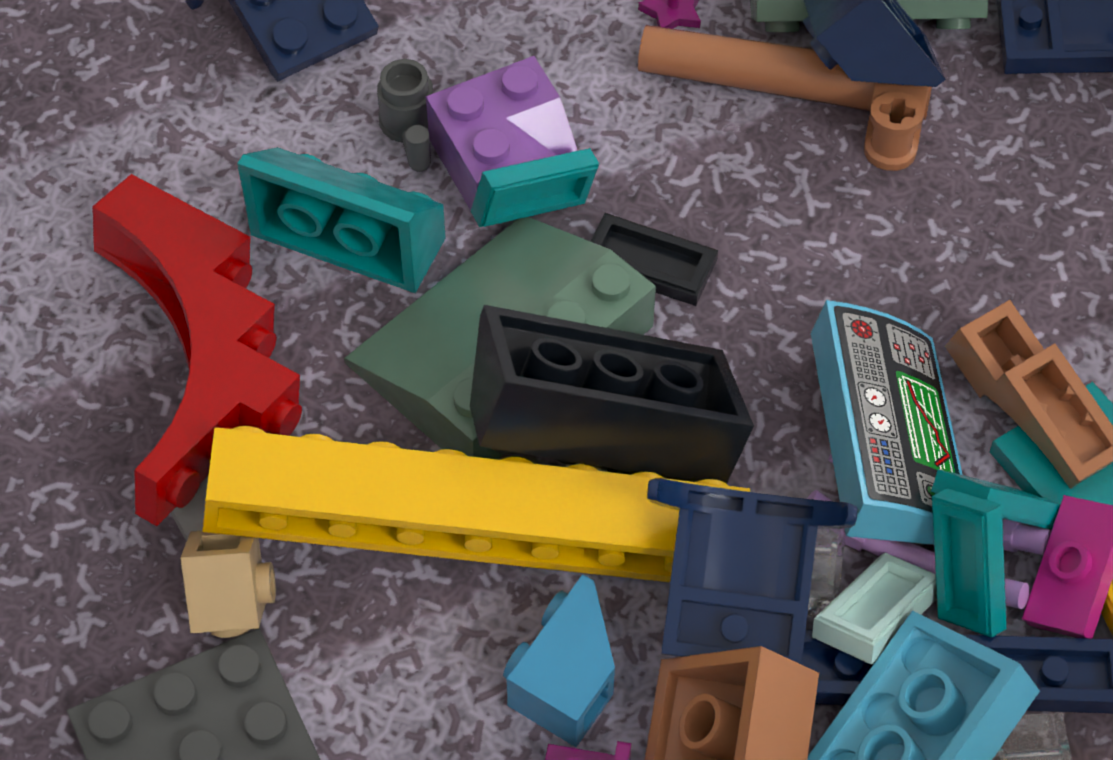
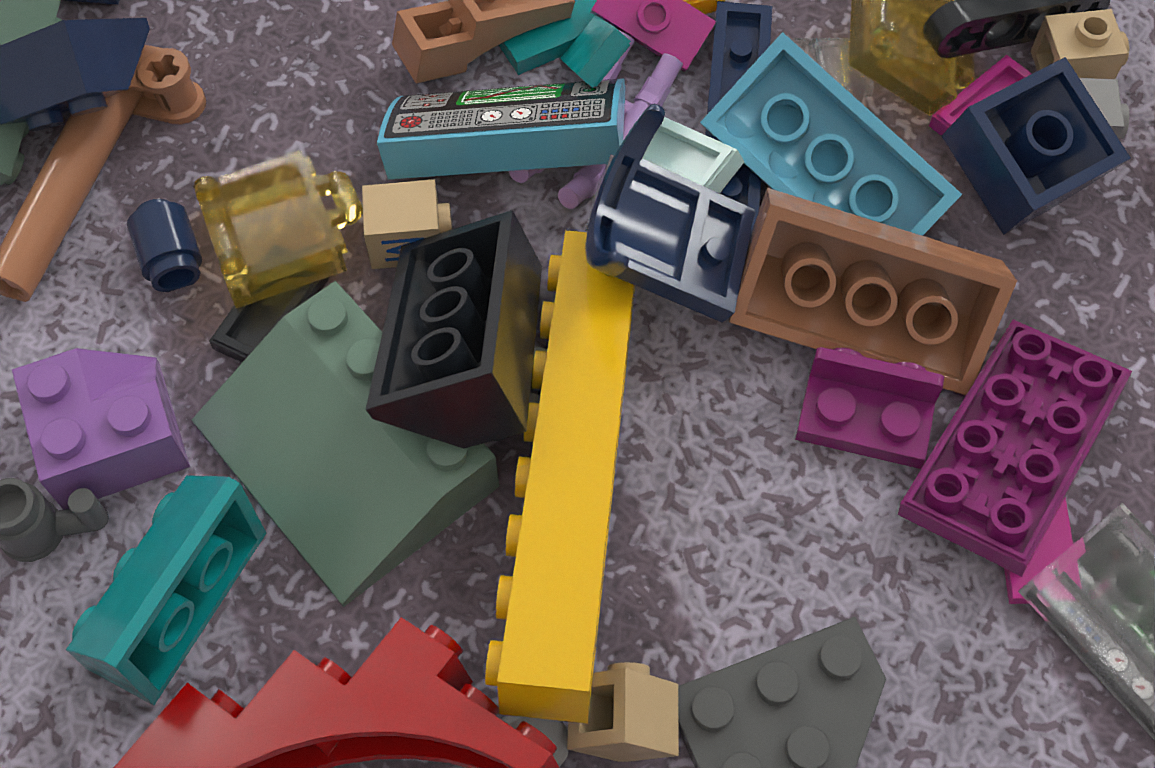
camera: 85 degrees left, 5 degrees up
(534, 187) = (176, 393): teal tile -> none
(567, 669) = (723, 402): dark azure slope -> none
(705, 158) = (165, 245): none -> dark blue brick
(736, 242) = (274, 226): none -> clear yellow piece
(757, 349) = (401, 215): none -> tan brick
(969, 562) = (657, 72): teal tile -> none

